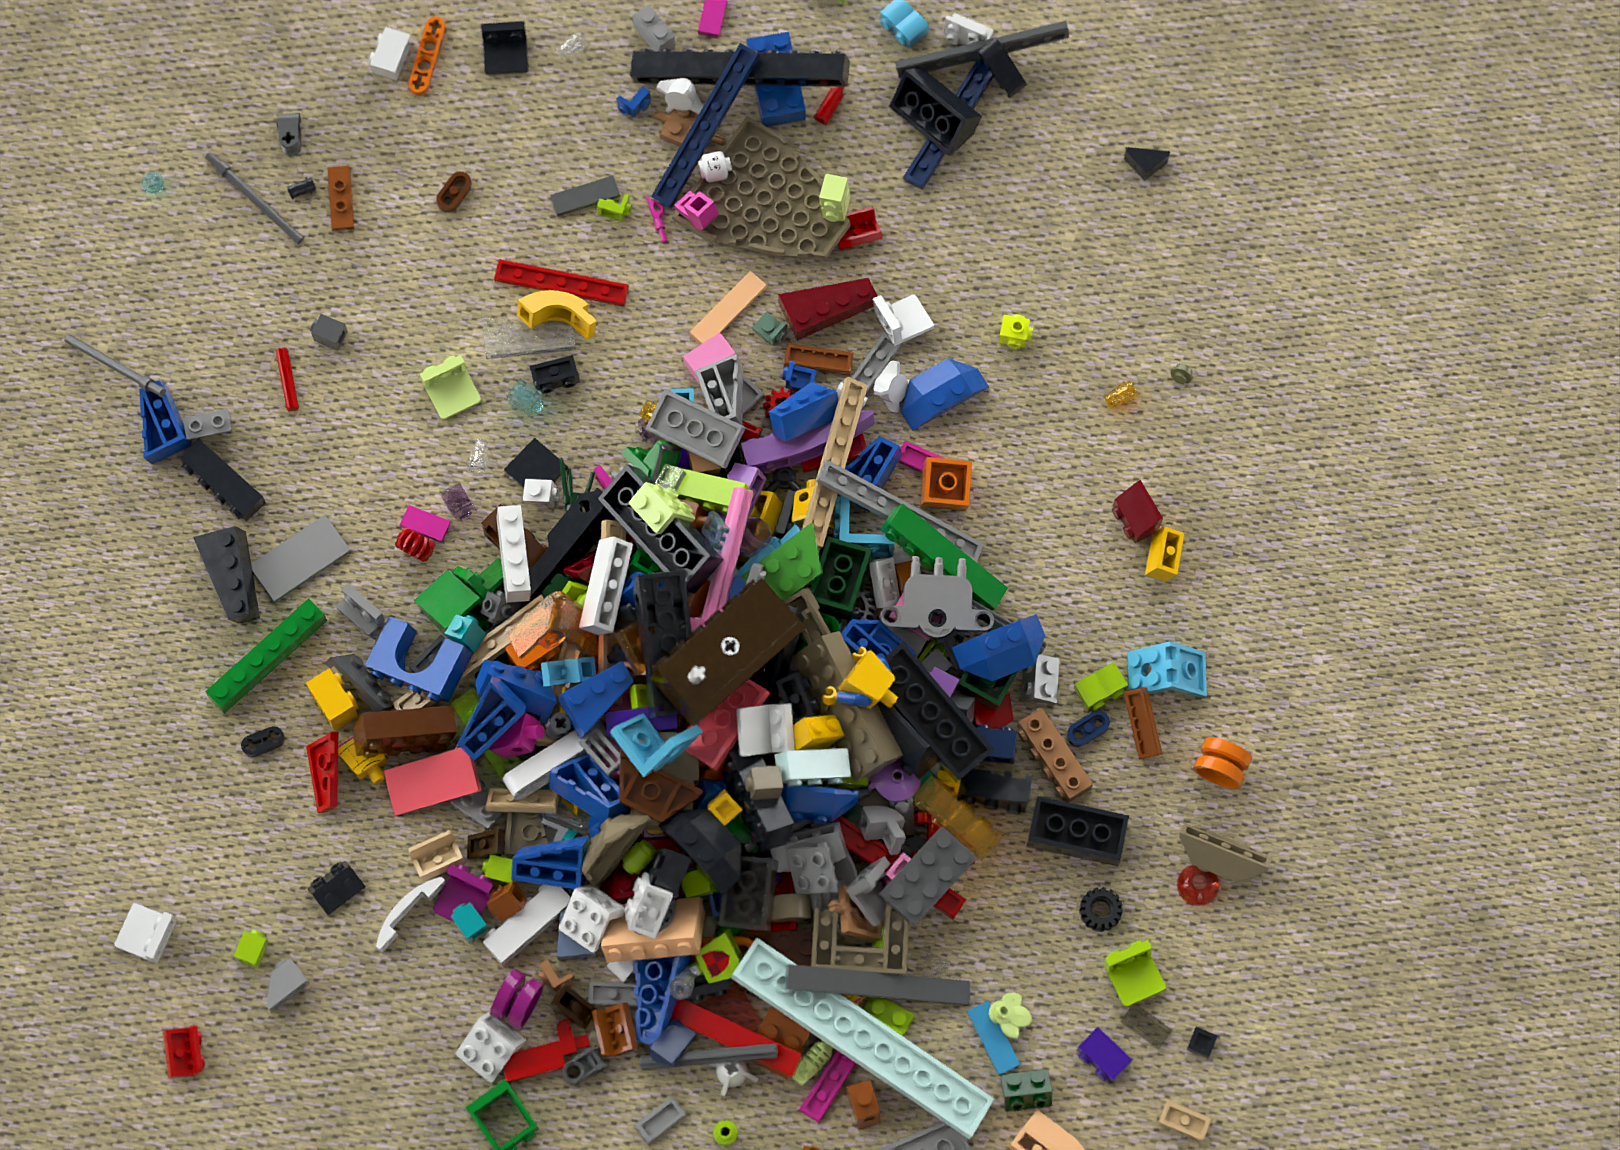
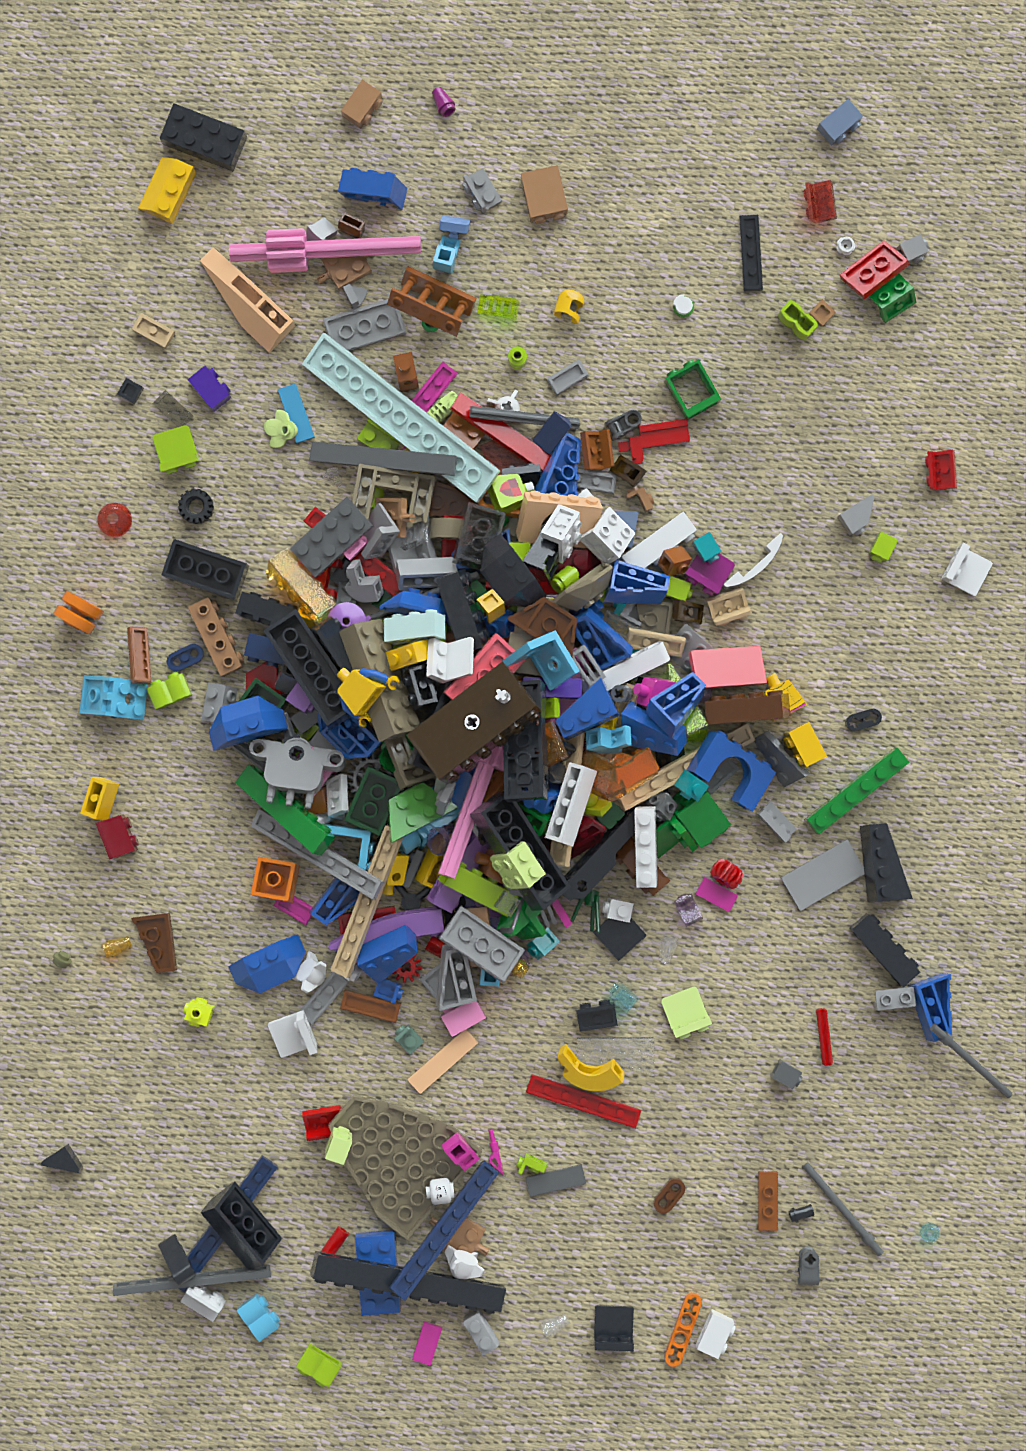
camera: 175 degrees left, 15 degrees up
(324, 771) = (814, 686): red wing -> none
(336, 887) = (811, 591): black bracket -> none
(489, 1046) = (696, 449): white bracket -> none
(516, 999) = (674, 480): magenta wheel -> none
(624, 440) = (542, 945): none -> teal bracket
(639, 102) = (500, 1263): blue bracket -> none
(682, 984) = (539, 473): clear cone -> none
(717, 526) = (473, 844): clear light blue tile -> none
(764, 782) = (455, 613): brick -> none
(812, 869) = (424, 551): light grey hinge -> none
(826, 305) = (362, 1052): dark red wedge -> none
(1026, 1090) = (275, 368): dark green bracket -> none
(1074, 409) = (158, 939): none -> reddish brown wing
(1222, 855) = (88, 537): dark tan wedge -> none

